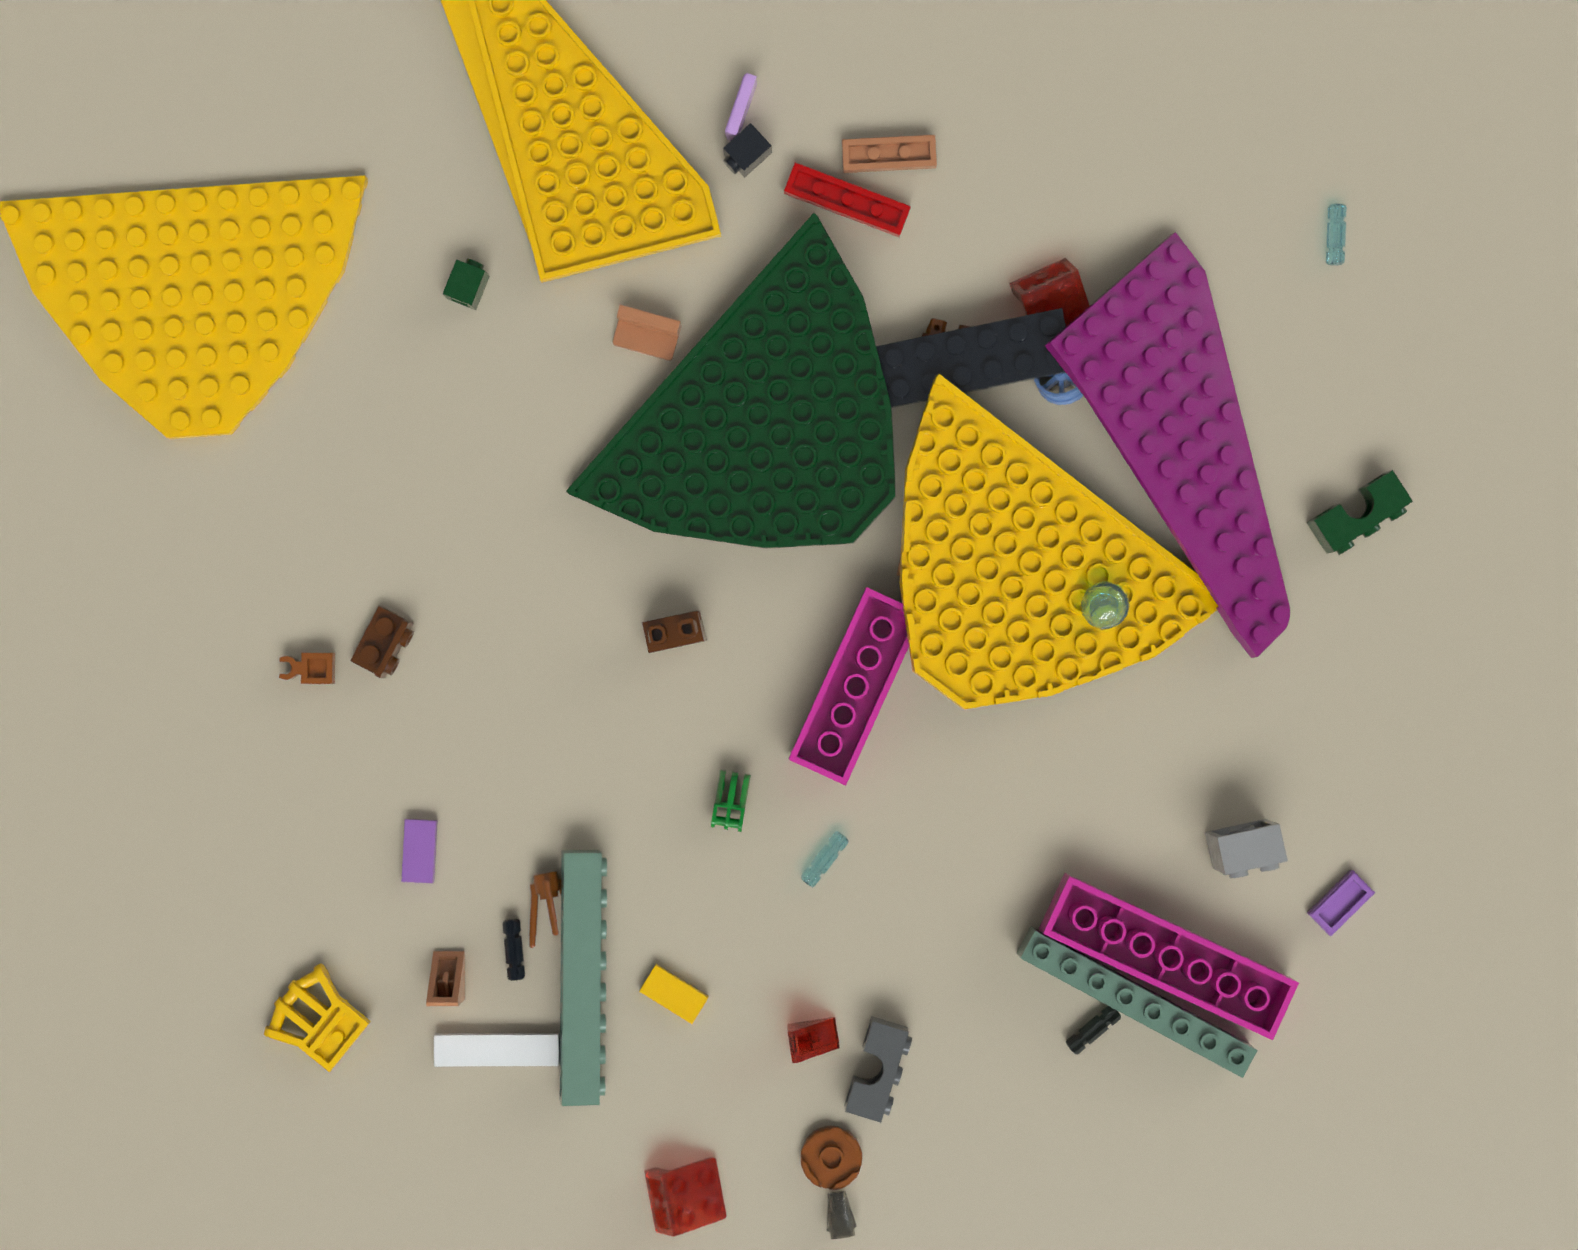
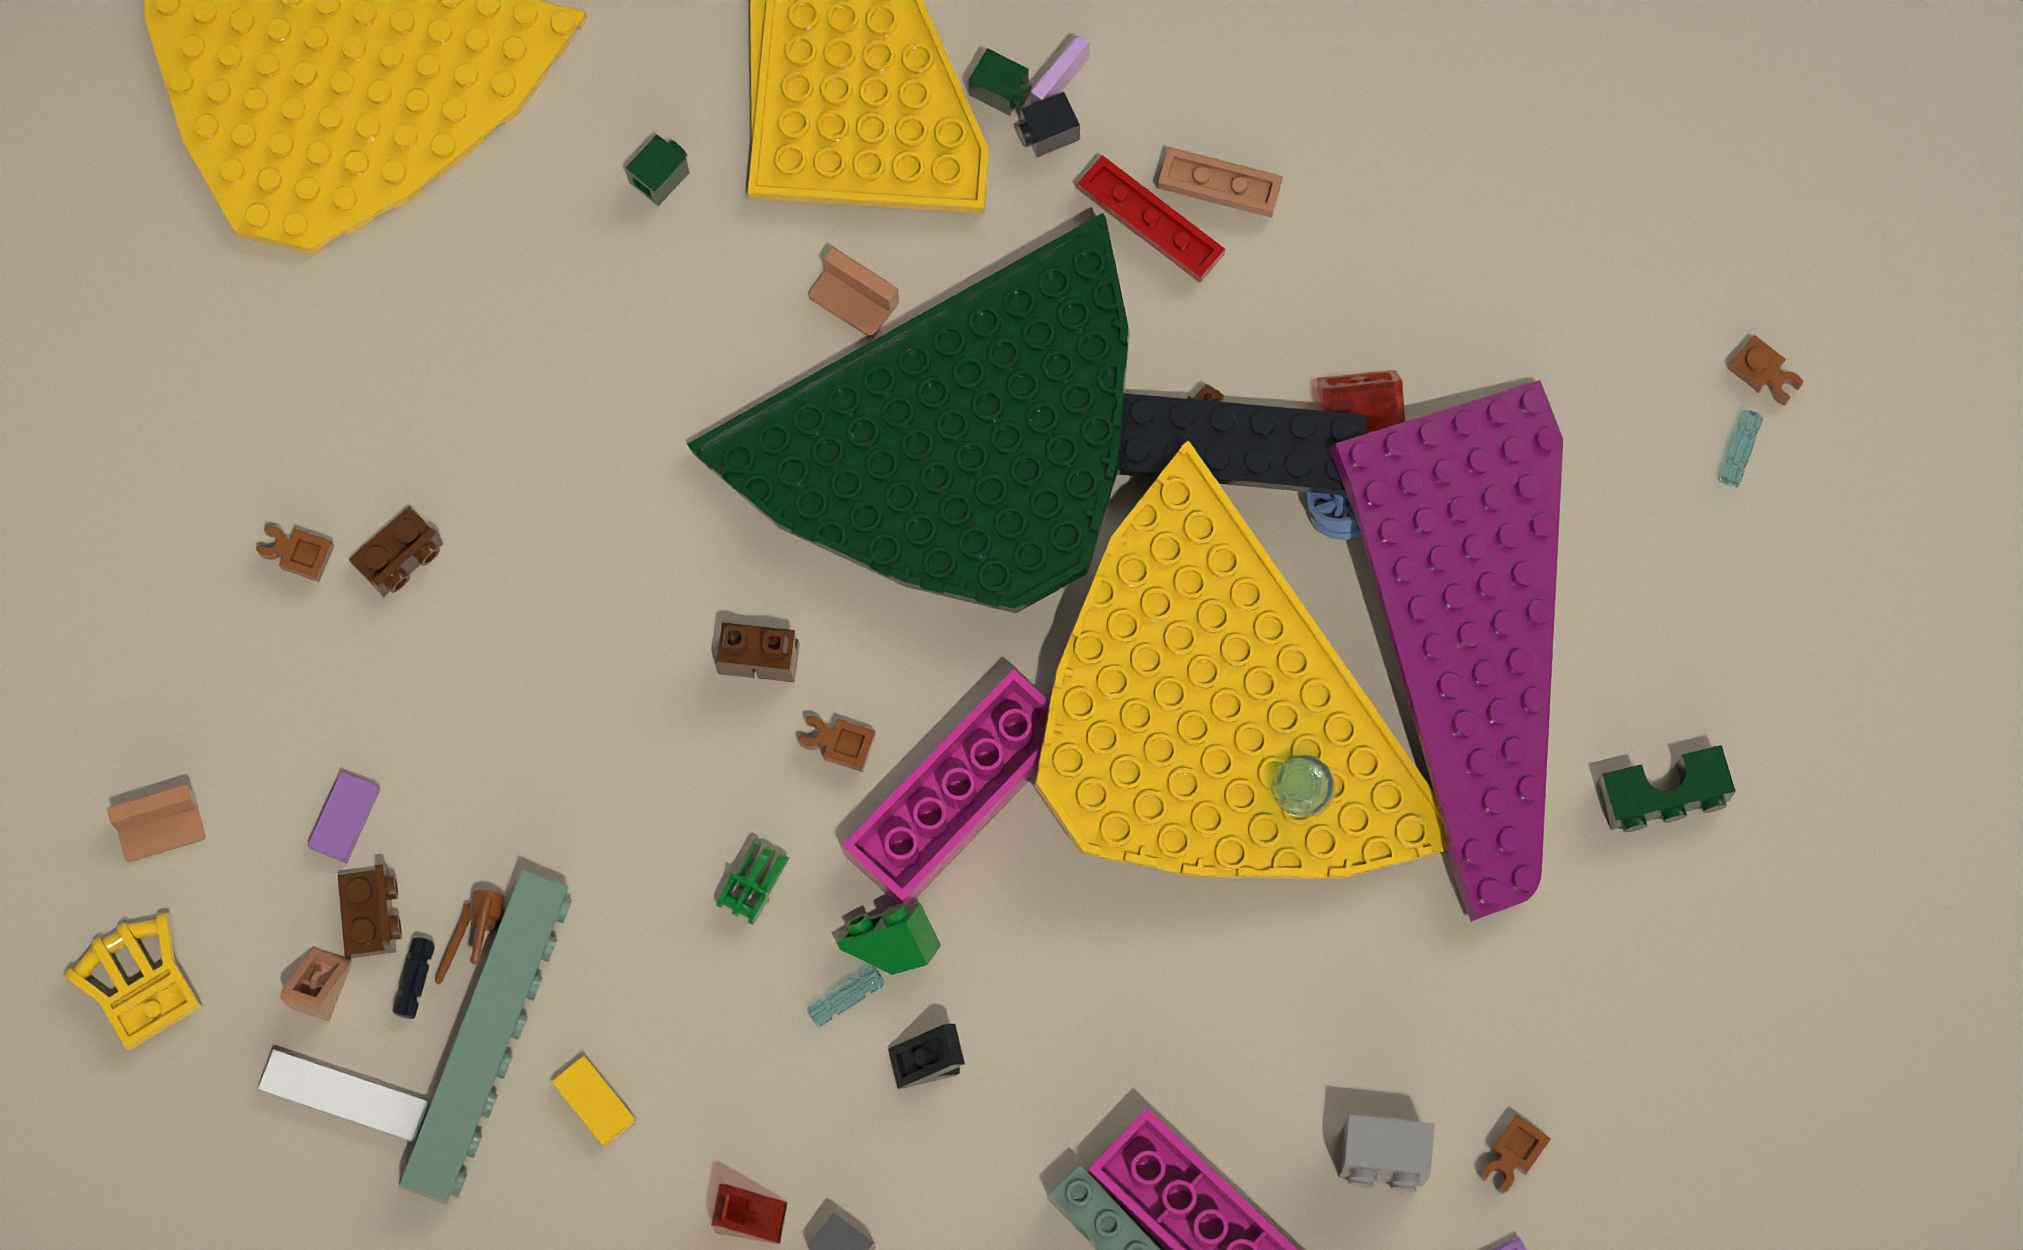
camera: 25 degrees right, 15 degrees down
(288, 901) = (157, 823): none -> nougat panel
(463, 914) = (368, 912): none -> reddish brown bracket
(698, 129) = (999, 82): none -> dark green brick
(761, 677) = (844, 744): none -> dark orange plate
(845, 811) = (892, 940): none -> green slope
(899, 885) = (927, 1057): none -> black slope
(1332, 165) = (1760, 366): none -> dark orange plate
(1333, 808) = (1518, 1149): none -> dark orange plate

